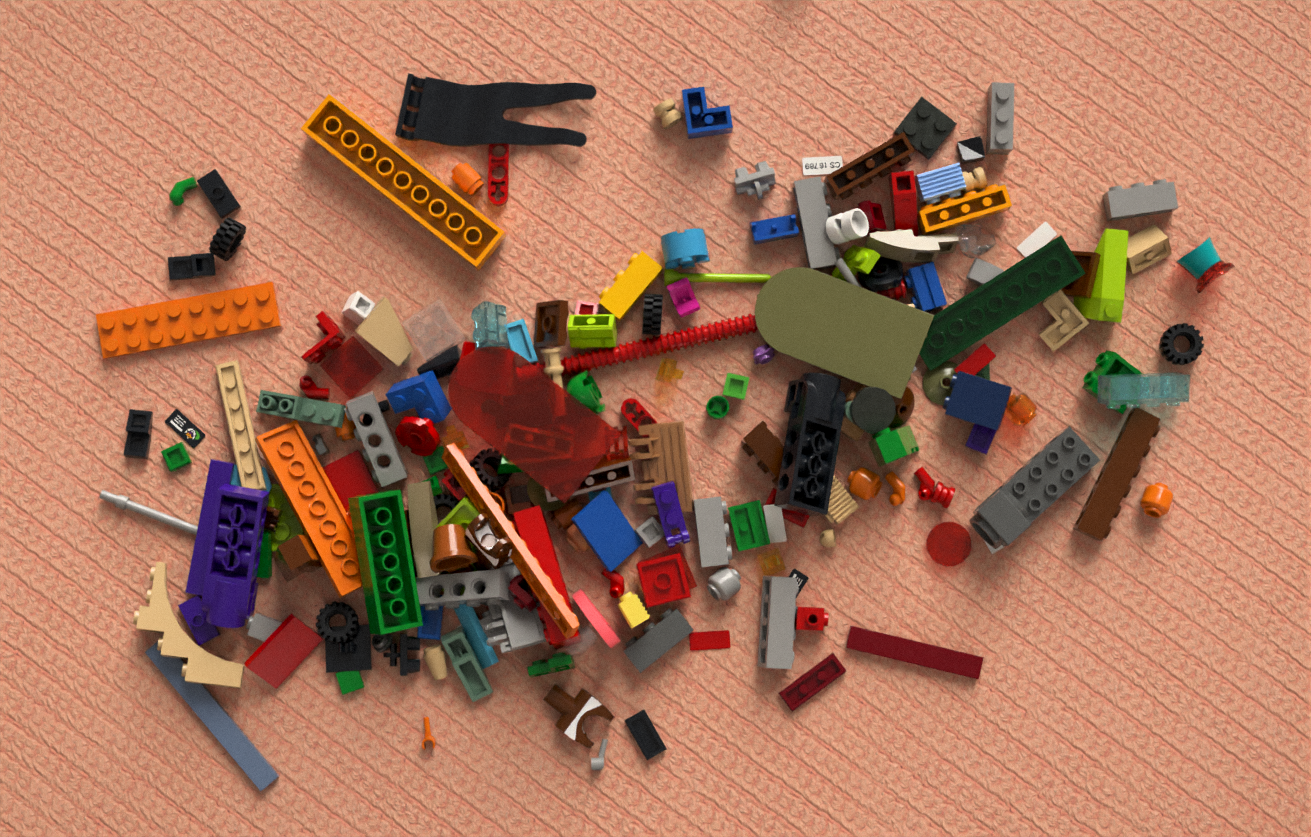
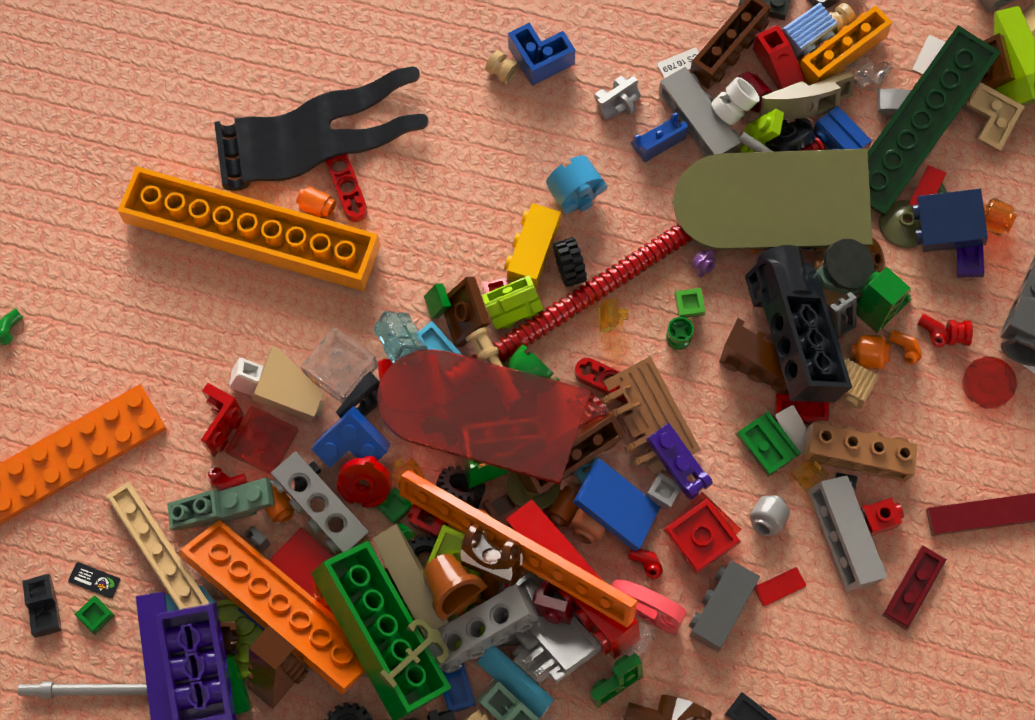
camera: 20 degrees left, 15 degrees down
(191, 266) = (45, 402): black slope -> none
(218, 193) = (49, 316): black plate -> none
(227, 239) = (74, 354): black tyre -> none
(423, 581) = (433, 636): none -> olive piece
(533, 303) = (437, 301): none -> green tile
(633, 609) = (683, 579): light yellow brick -> none
(672, 276) = (573, 222): lime piece -> none
(683, 297) = (594, 235): dark pink bracket -> none
(712, 531) = (731, 465): light grey brick -> none
(817, 562) = (860, 451): none -> medium nougat brick
(827, 538) = (860, 423): tan hinge -> none
(852, 443) = (844, 313): none -> dark grey tile

